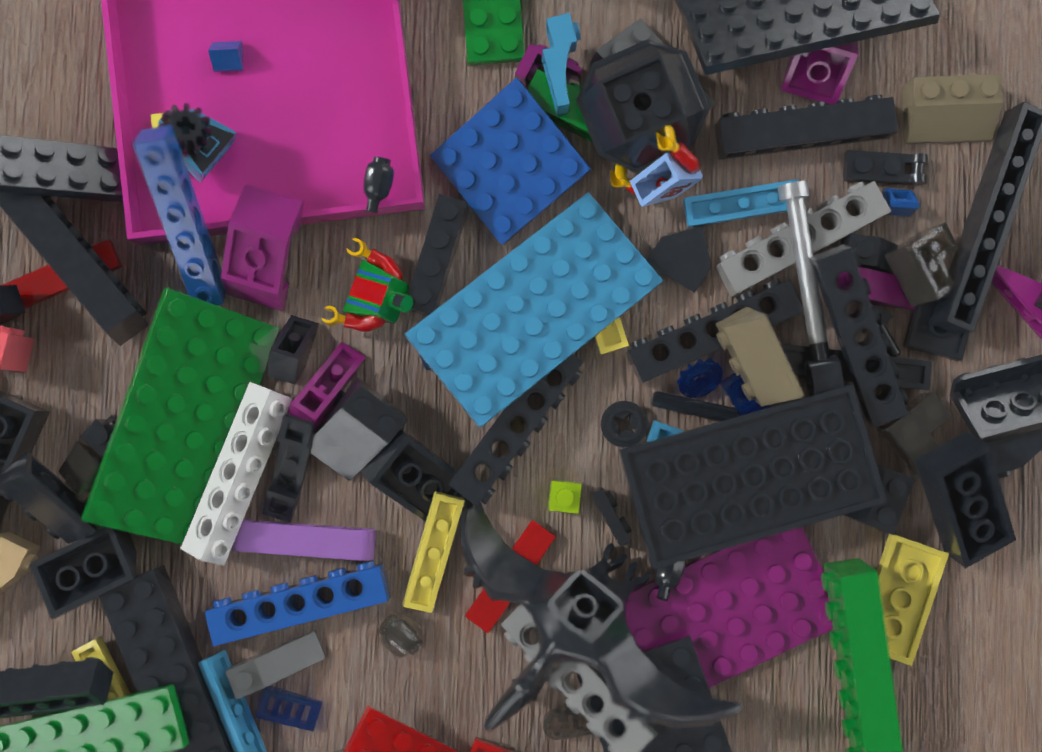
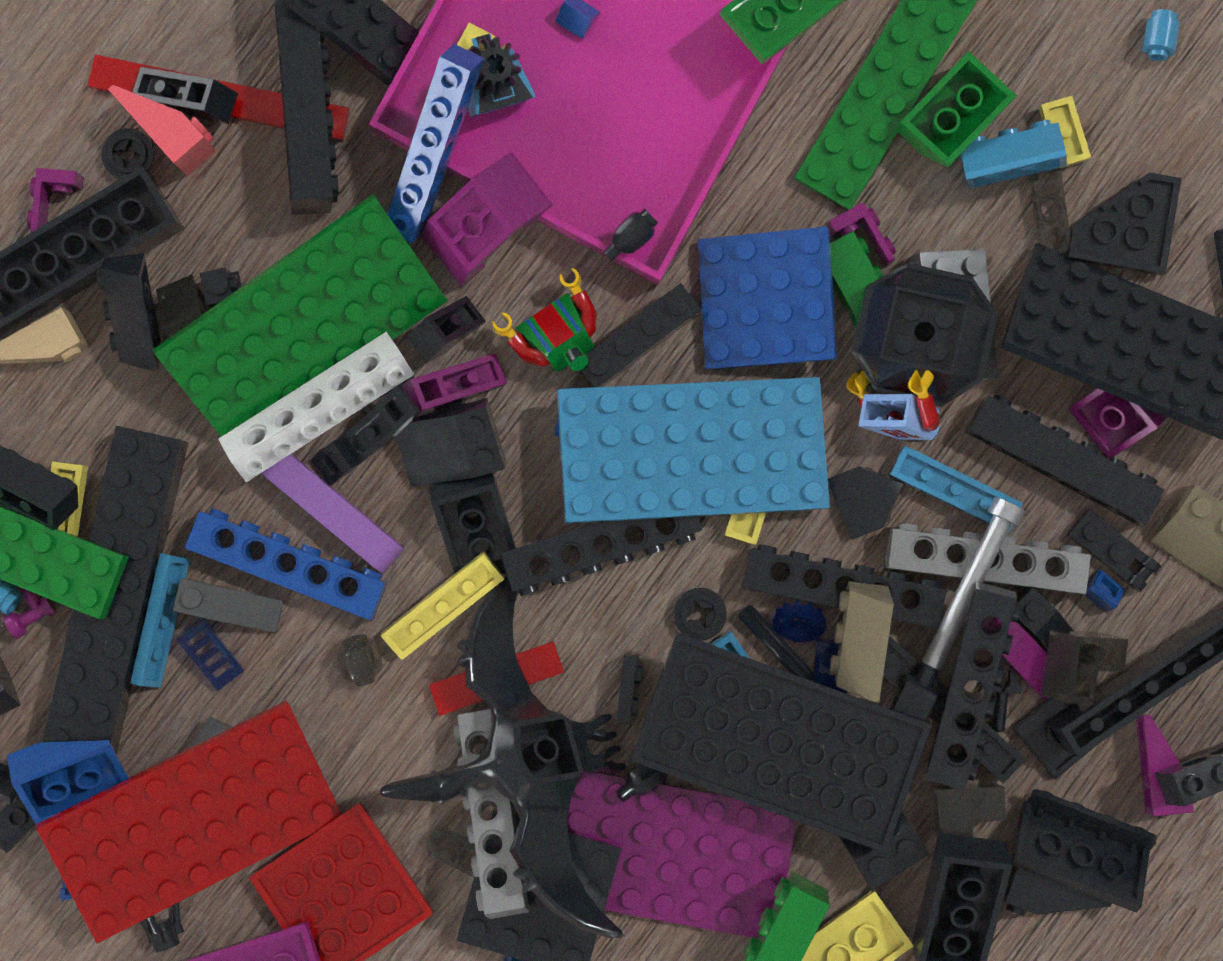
camera: 35 degrees right, 0 degrees up
(85, 570) = (119, 397): black slope -> none
(563, 40) = (895, 220): dark azure slope -> none
(564, 496) = (598, 640): lime brick -> none

